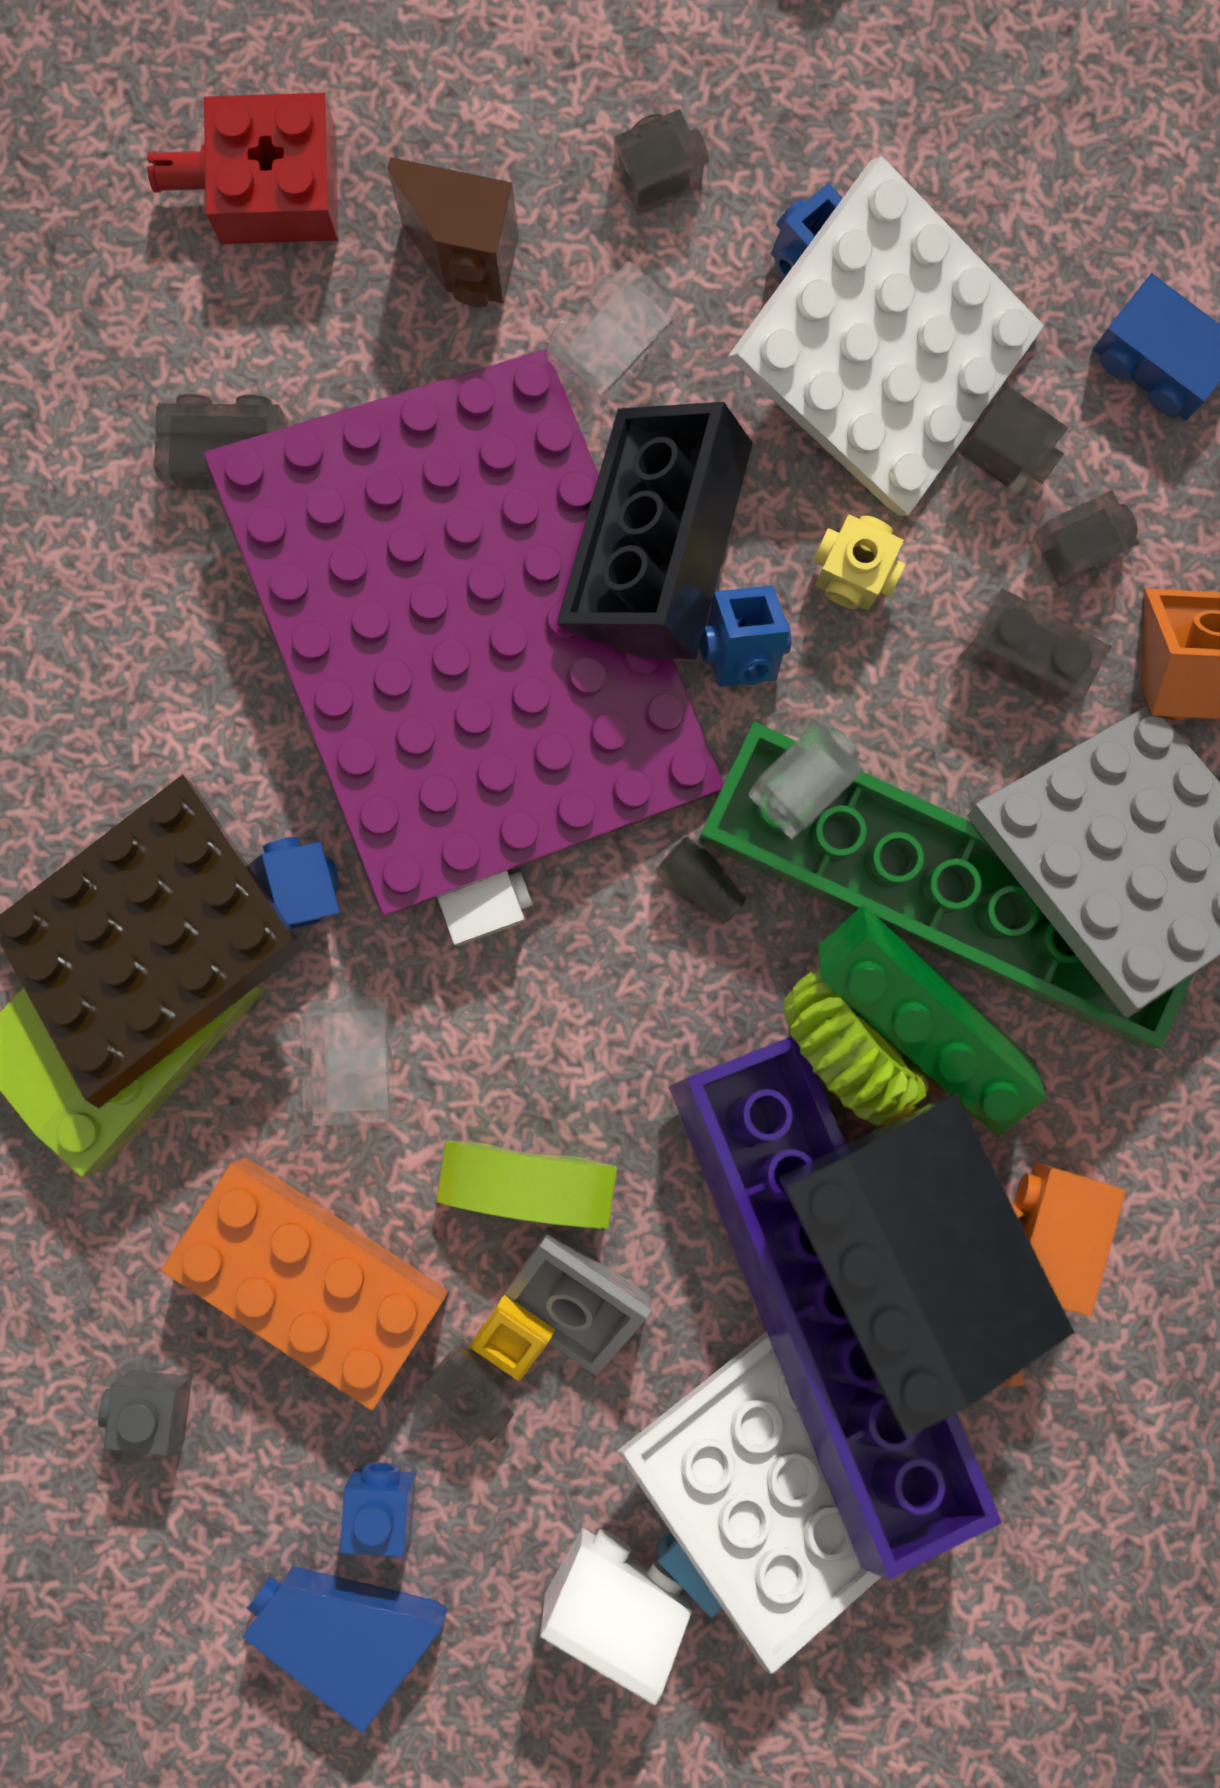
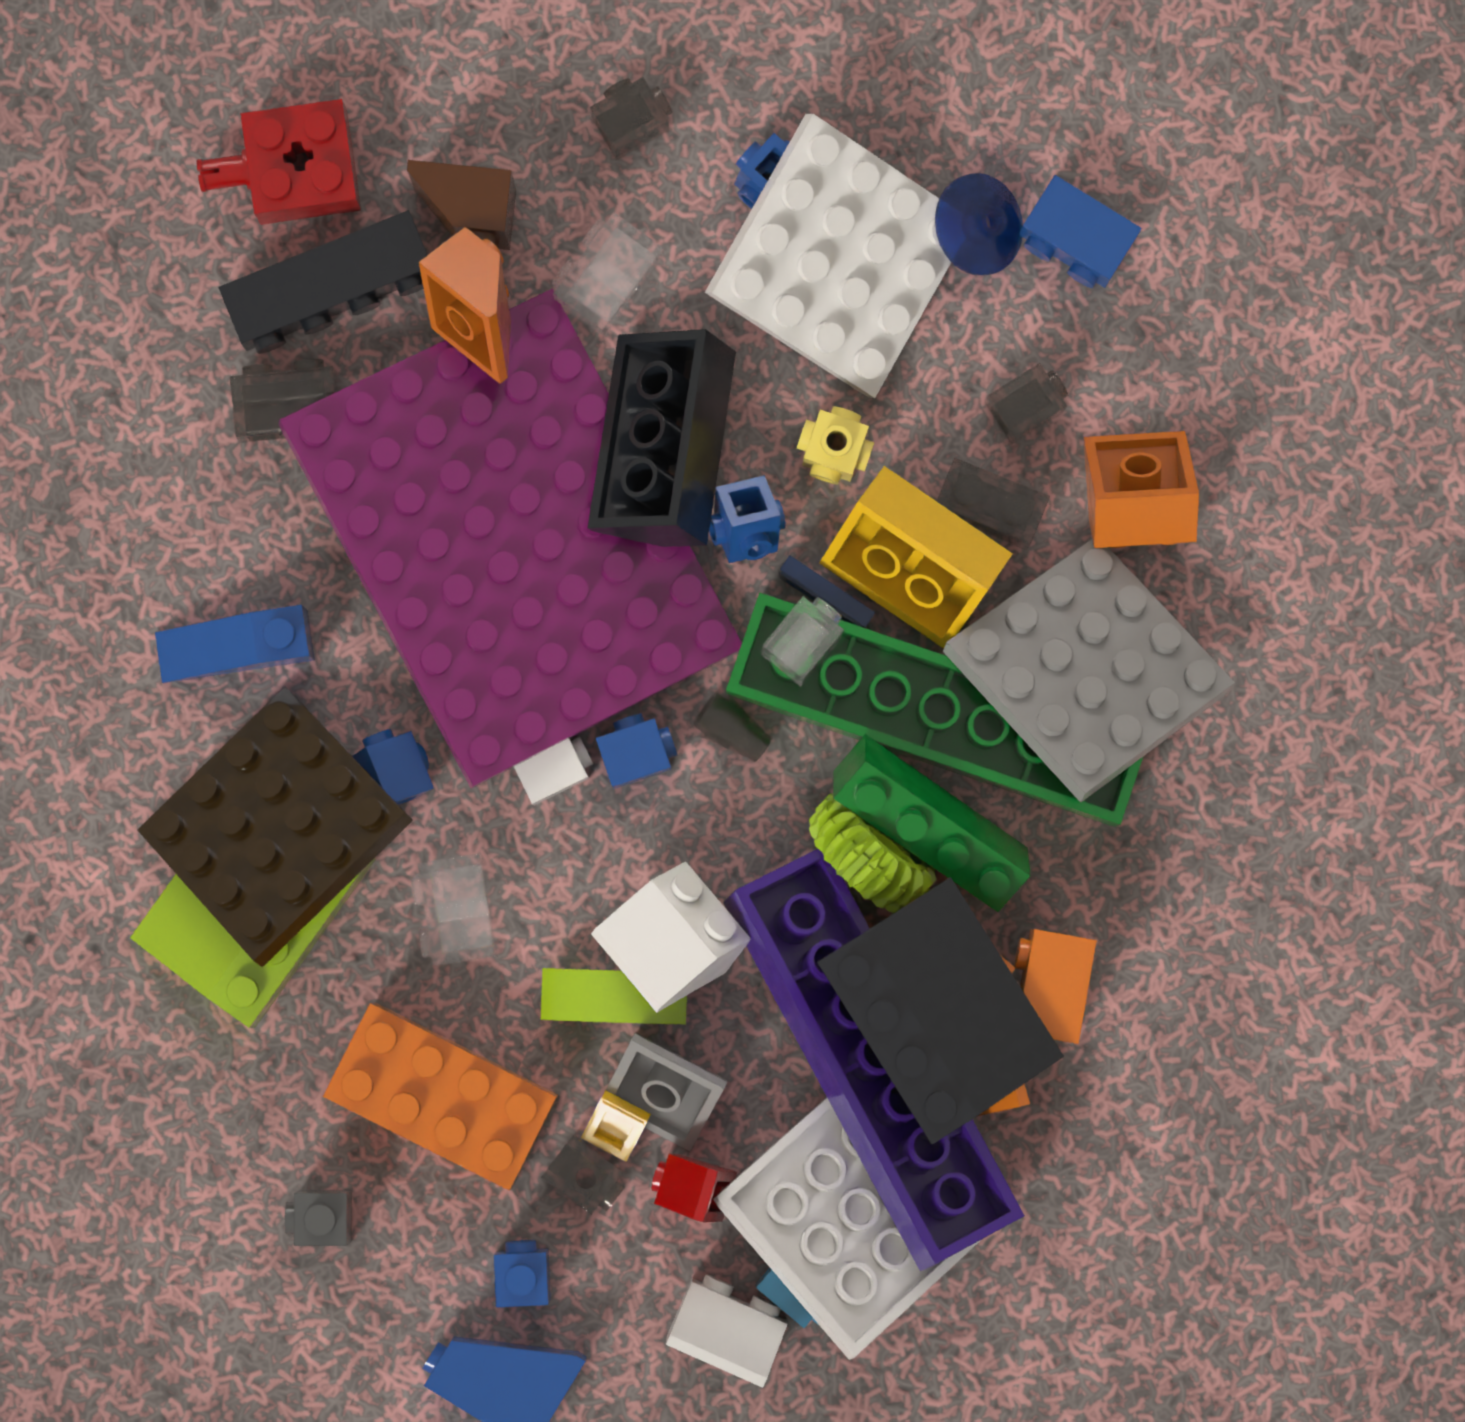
camera: 10 degrees left, 0 degrees up
(133, 718) = (235, 644): none -> blue slope
(285, 311) = (326, 282): none -> black brick
(445, 332) = (470, 300): none -> orange slope
(584, 894) = (636, 750): none -> blue brick
(593, 1428) = (690, 1186): none -> red slope
(602, 1124) = (672, 937): none -> white slope
(803, 712) = (814, 586): none -> dark blue tile
(944, 702) = (915, 557): none -> yellow brick
(1016, 442) = (957, 328): clear smoke brick -> none
(1050, 326) = (964, 229): none -> clear blue dish

